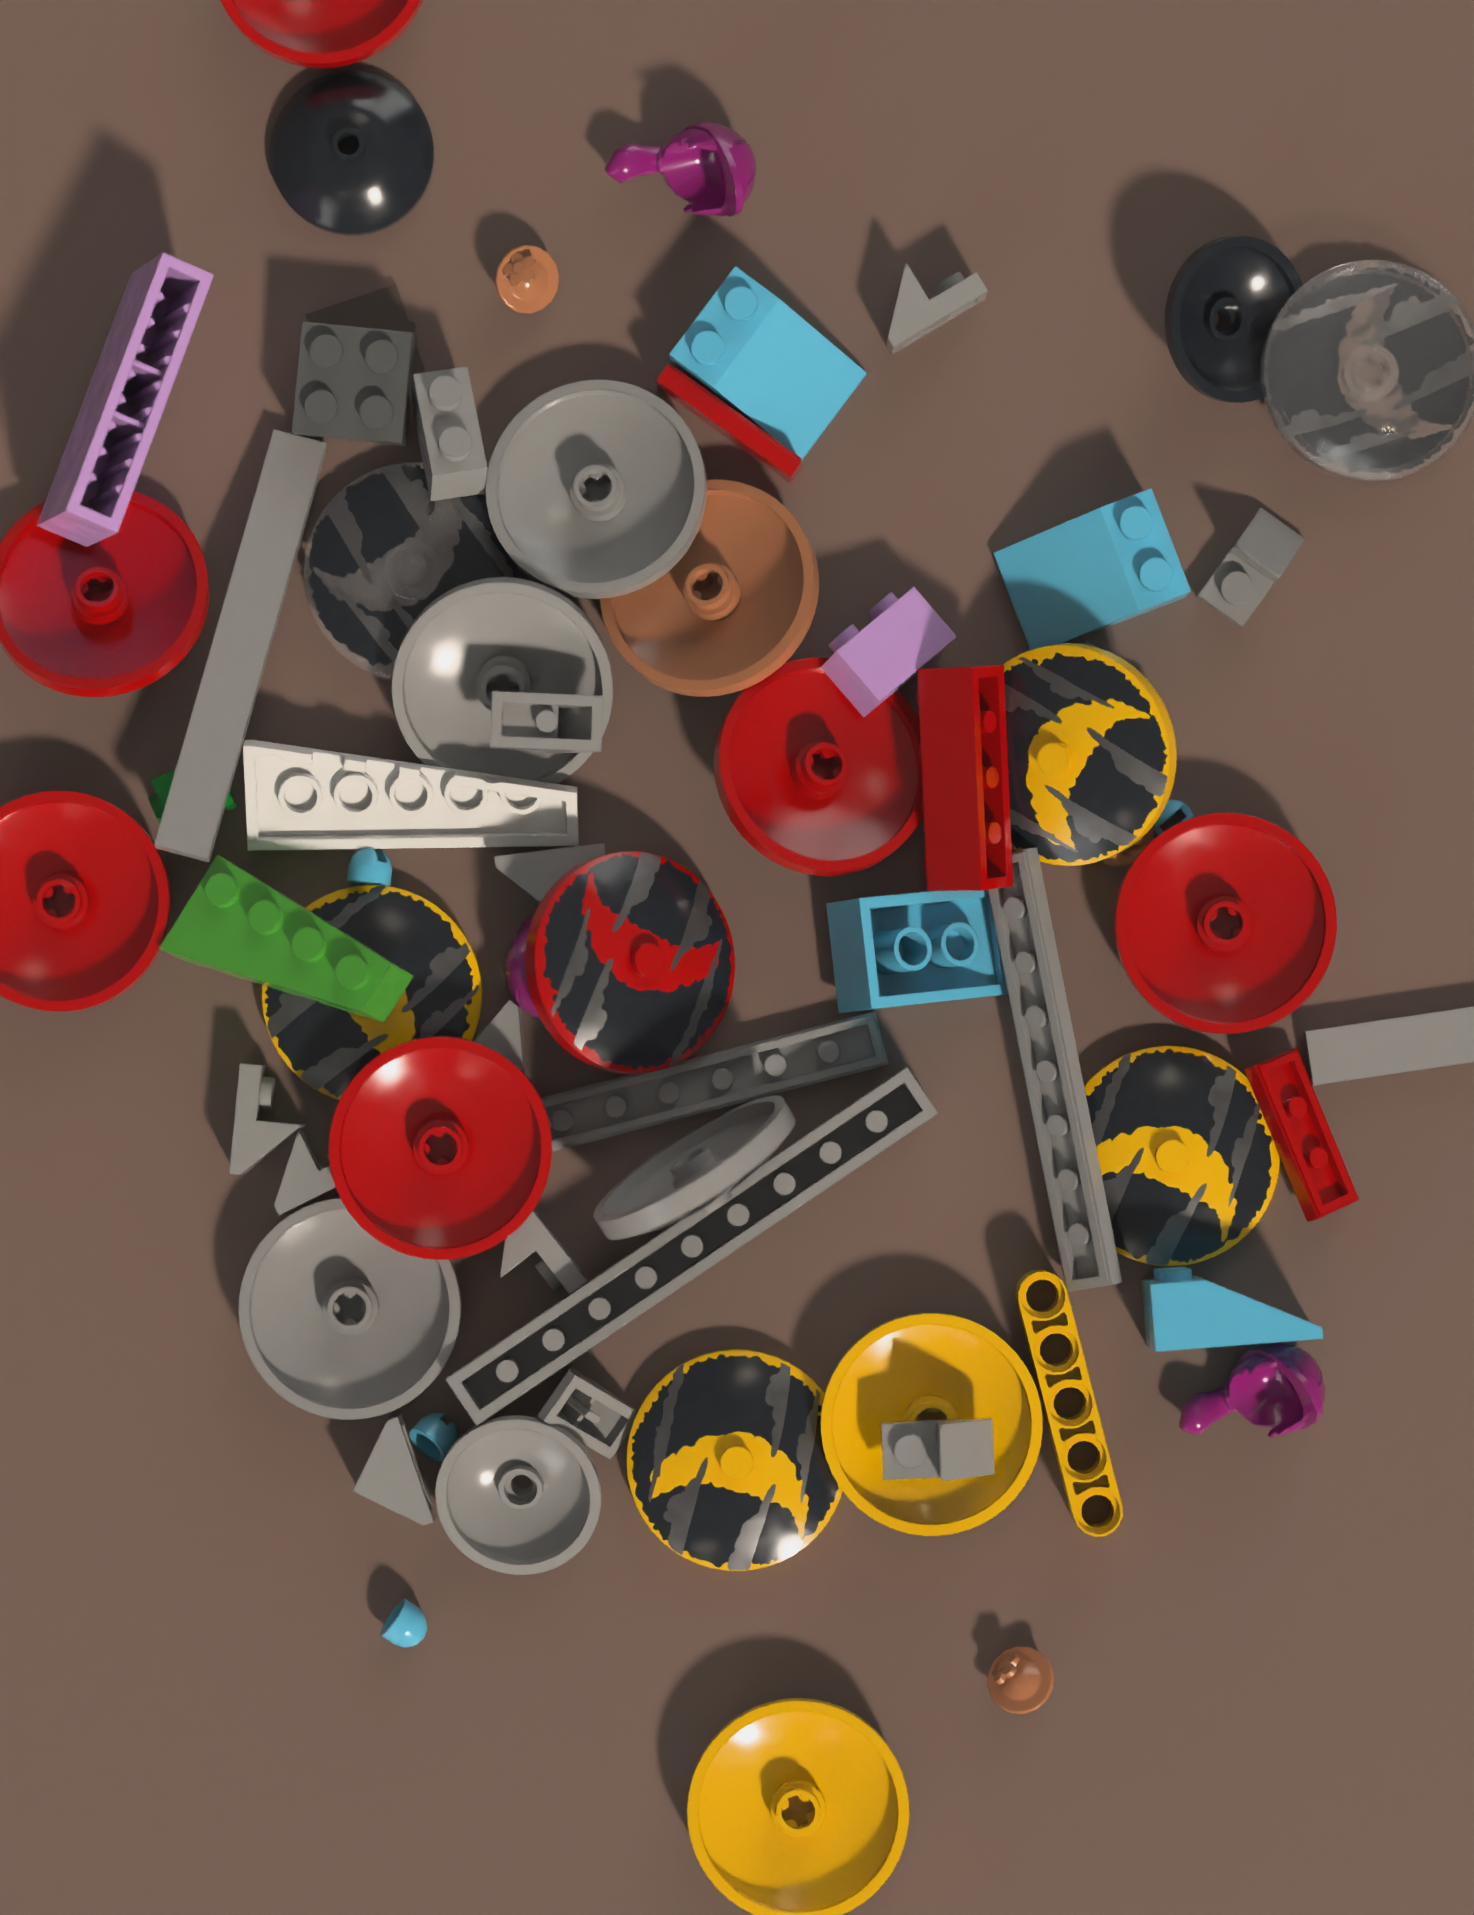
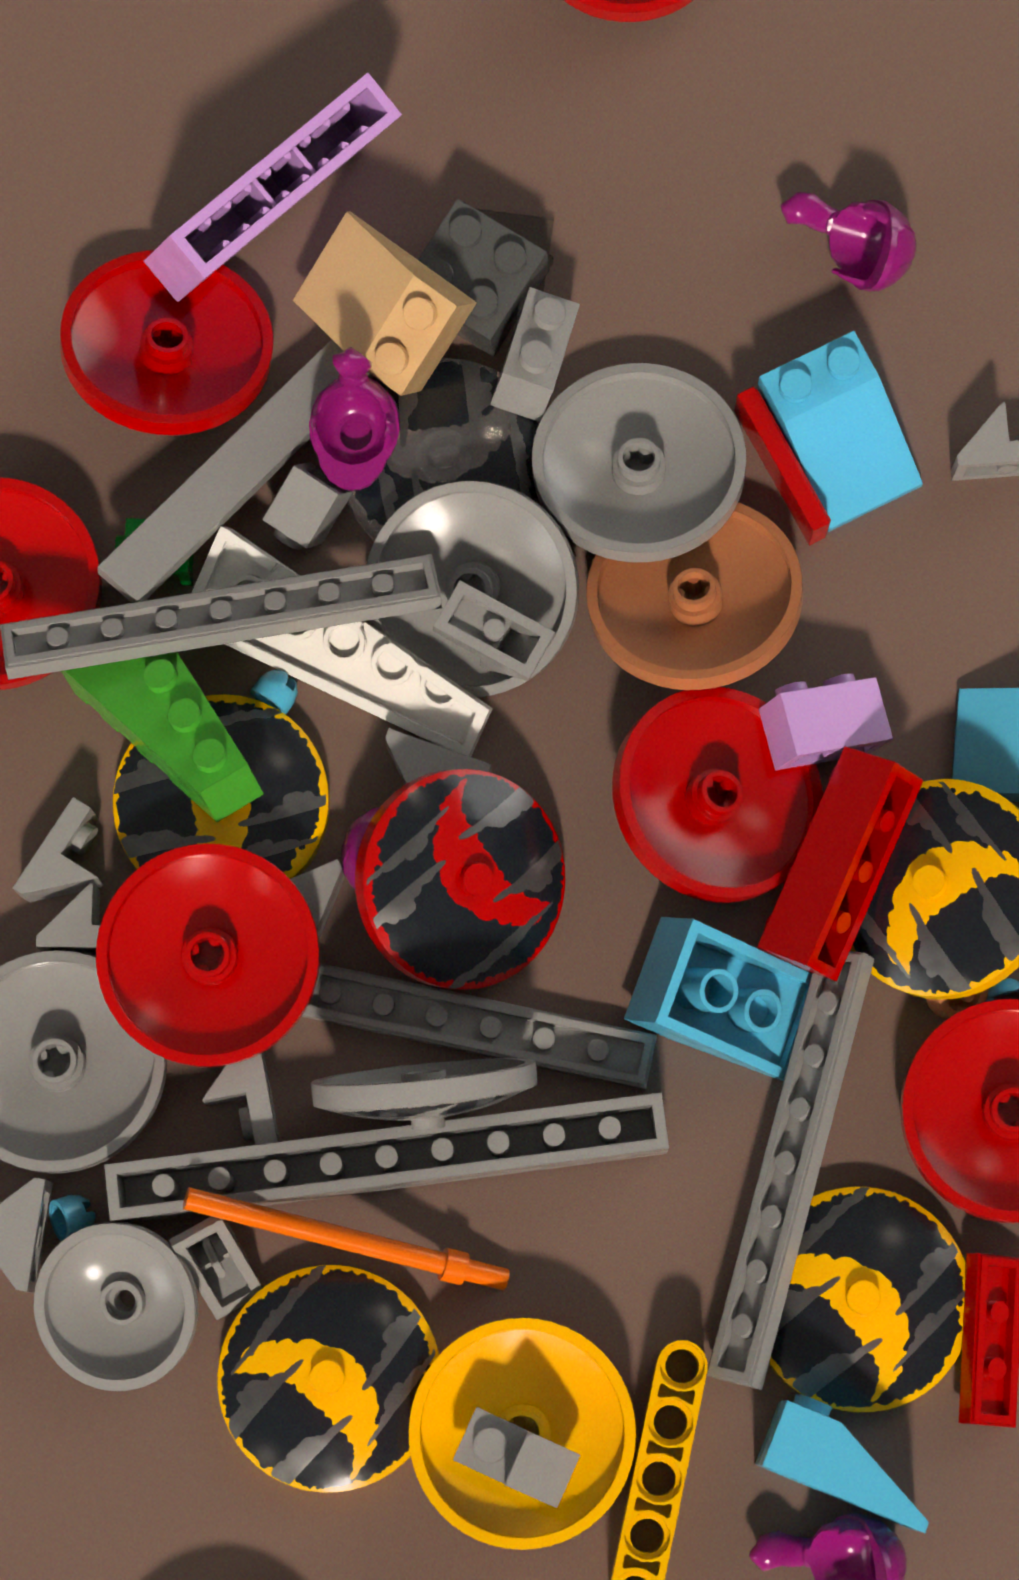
camera: 30 degrees right, 10 degrees down
(285, 462) = (383, 305): none -> tan slope
(291, 833) = (220, 616): none -> light grey tile
(310, 683) = (305, 507): none -> light grey brick
(319, 592) = (353, 424): none -> magenta piece
(361, 189) = (564, 124): black dish -> none
(527, 279) = (668, 264): nougat hat -> none
(793, 1309) = (450, 1265): none -> orange bar

